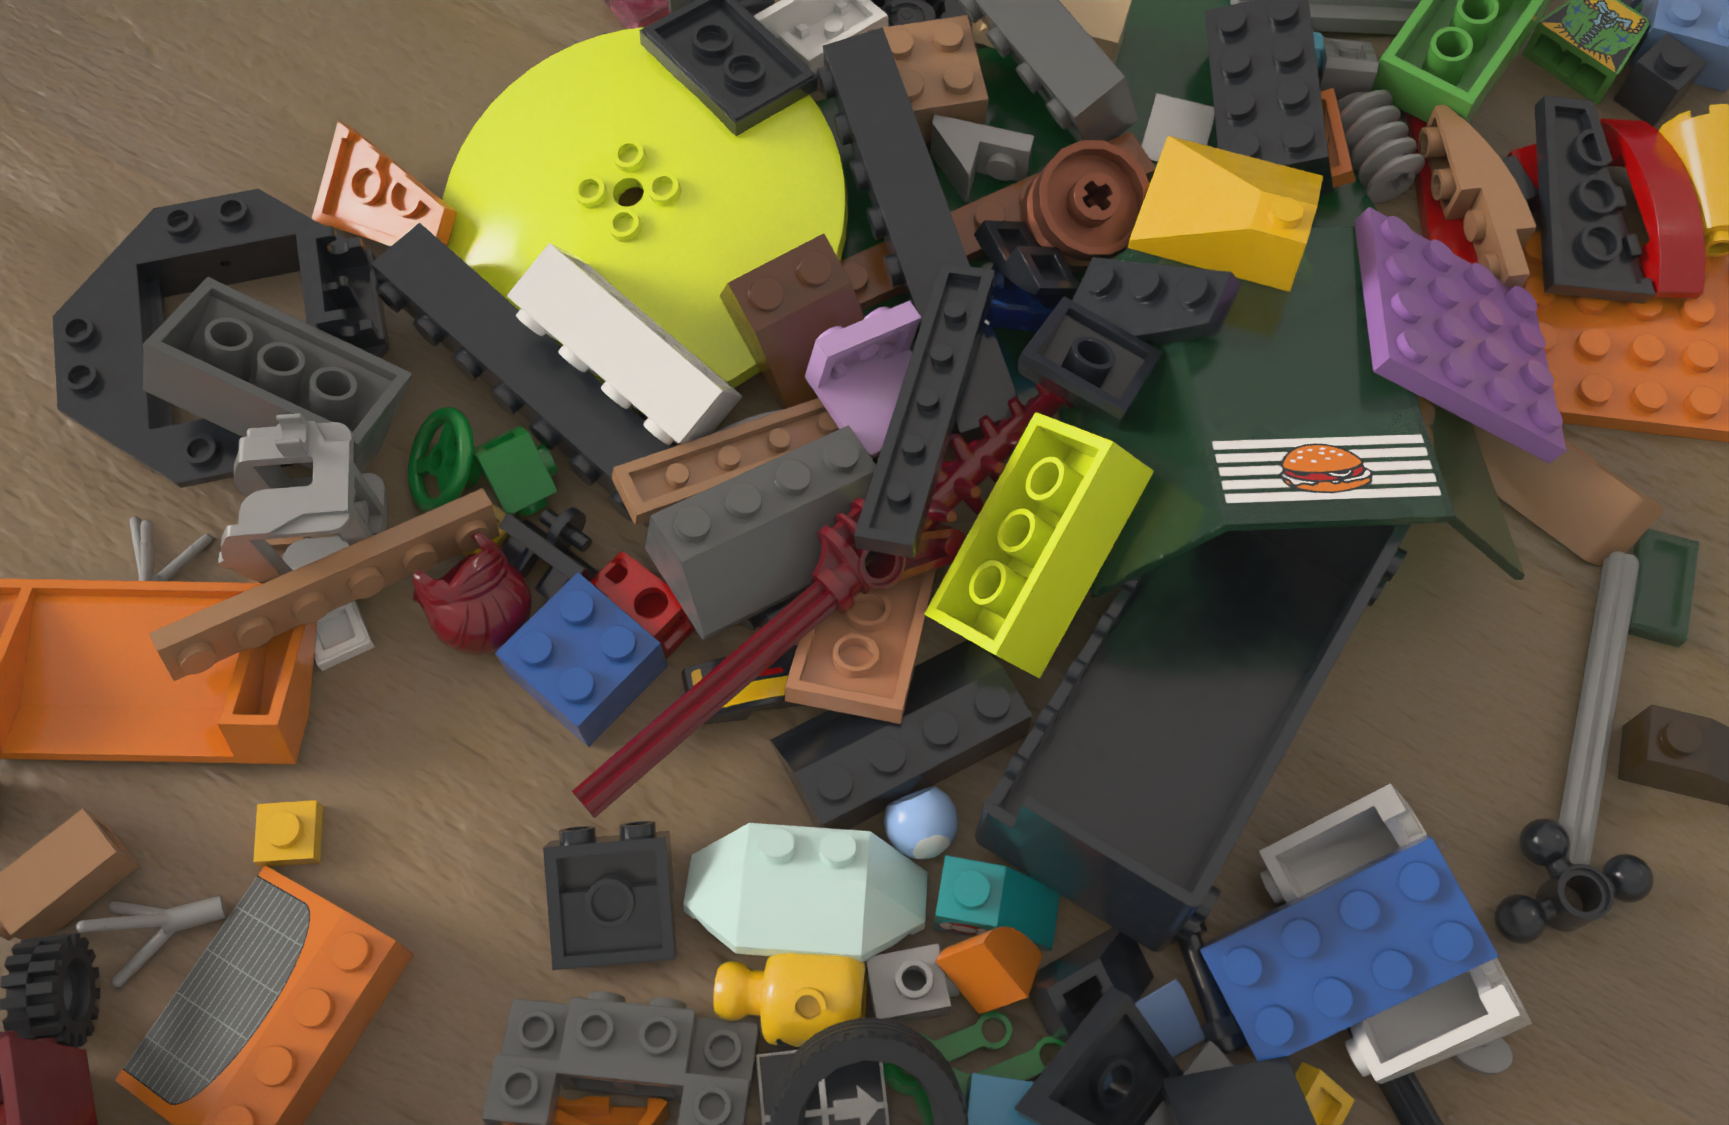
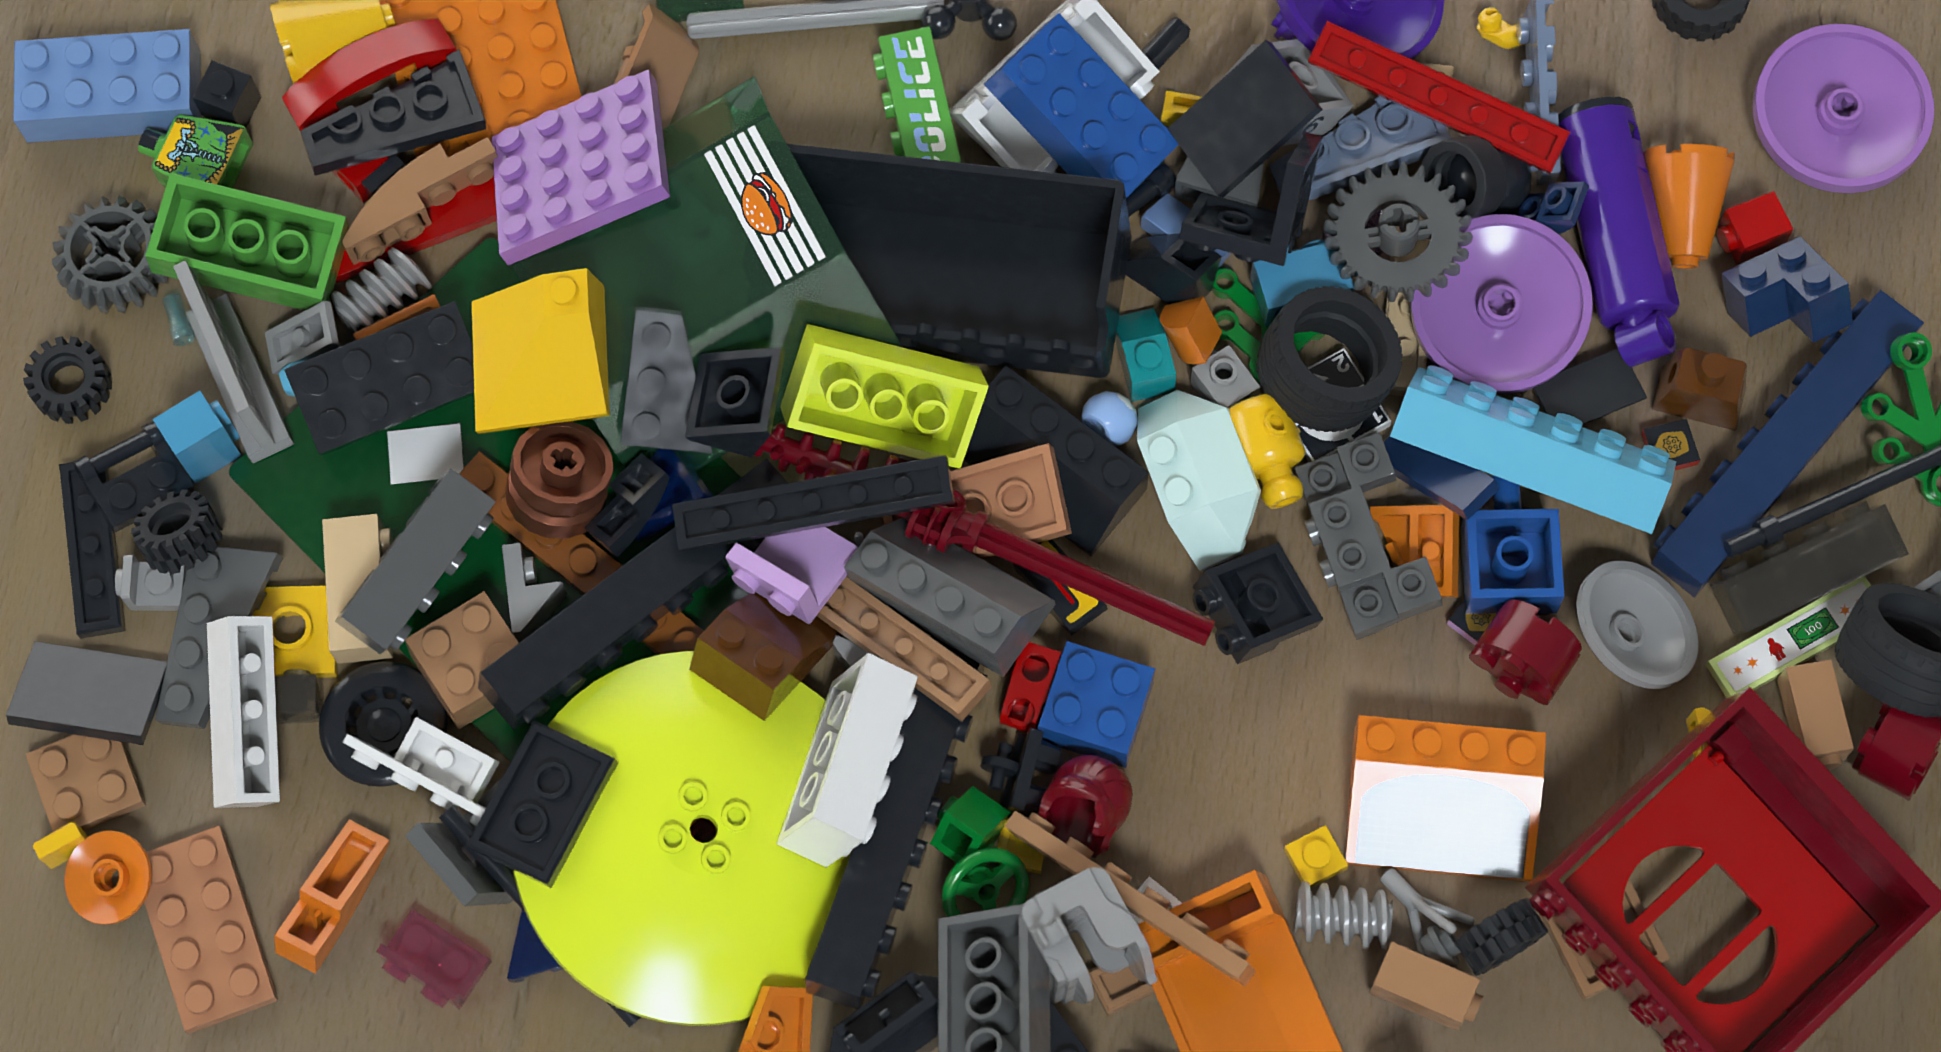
camera: 110 degrees left, 5 degrees up
(97, 908) = (1440, 946): none -> dark grey plate
(194, 825) = (1343, 915): none -> light grey piece
(1432, 767) = (915, 96): none -> bright green brick

